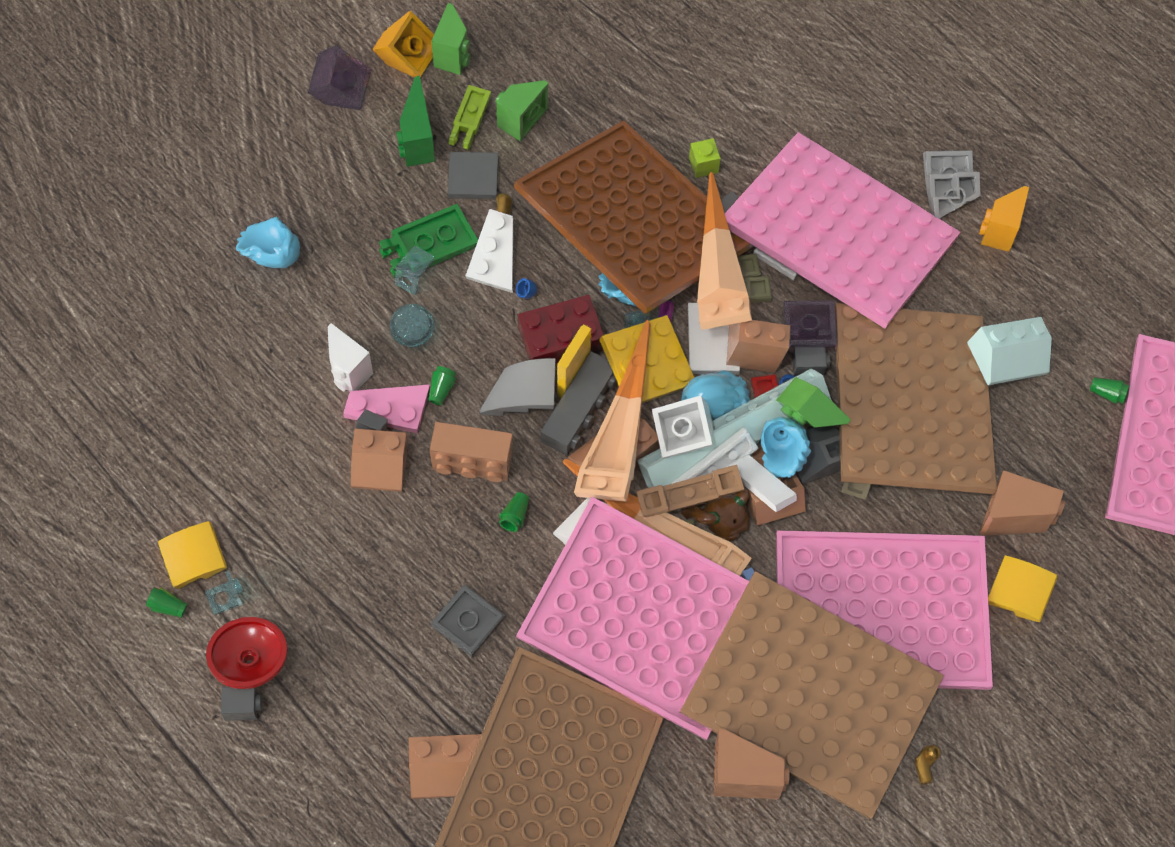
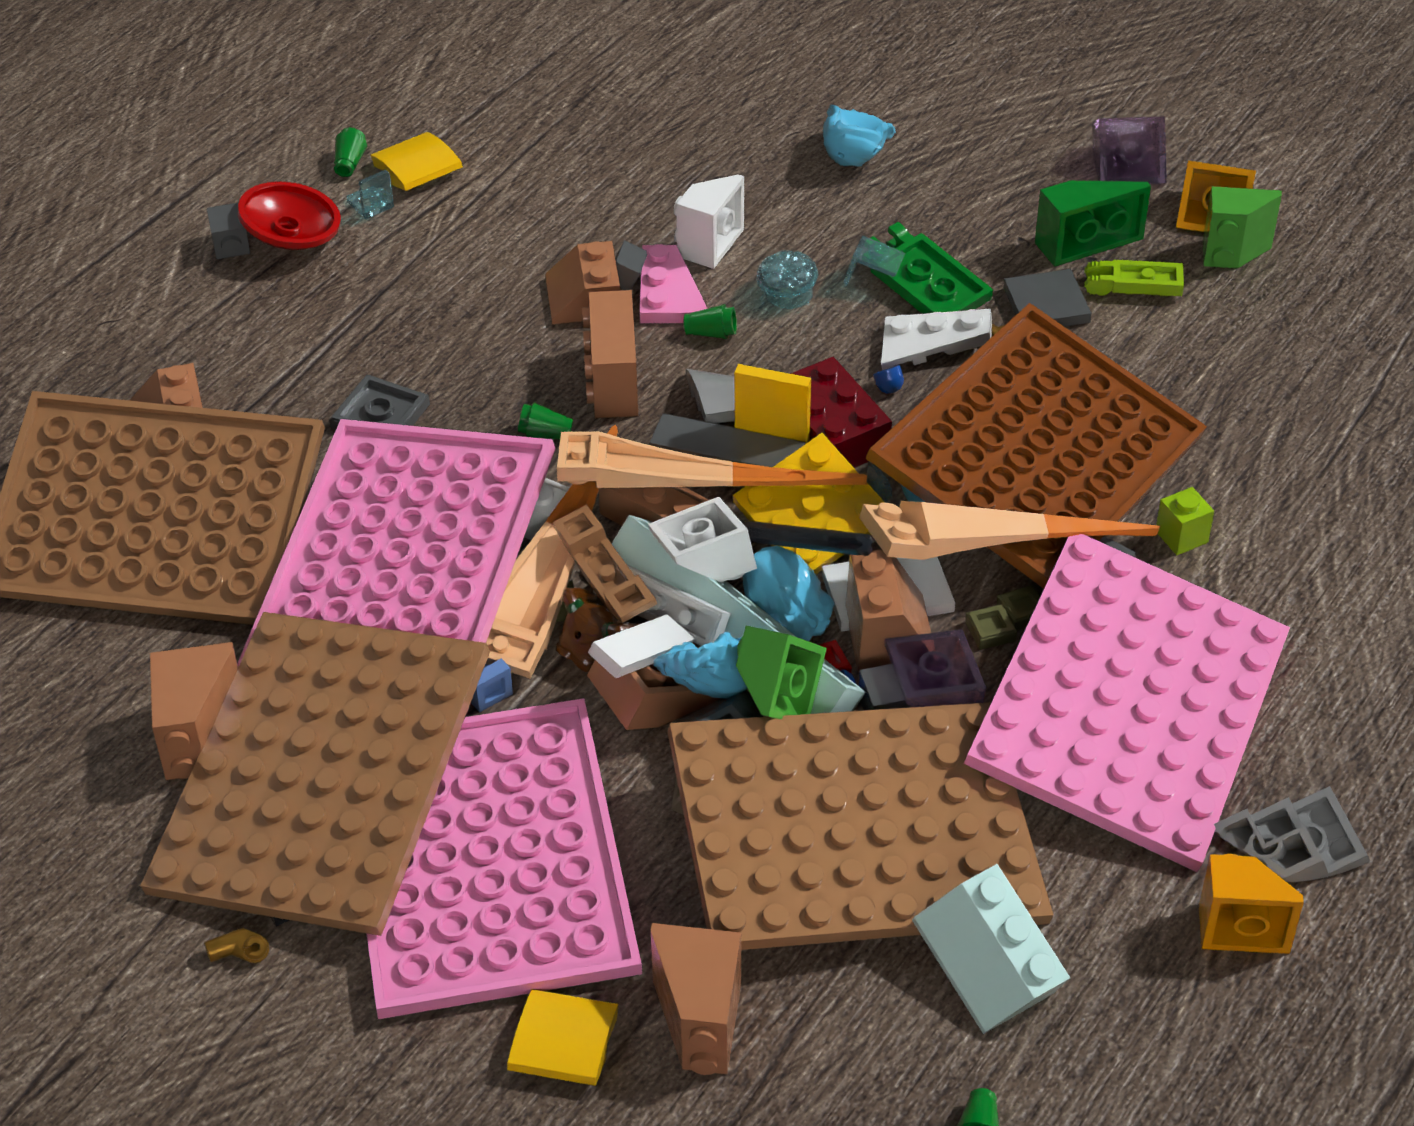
camera: 80 degrees right, 20 degrees down
(521, 107) = (1166, 311): bright green slope -> none
(699, 370) = (809, 538): none -> black axle

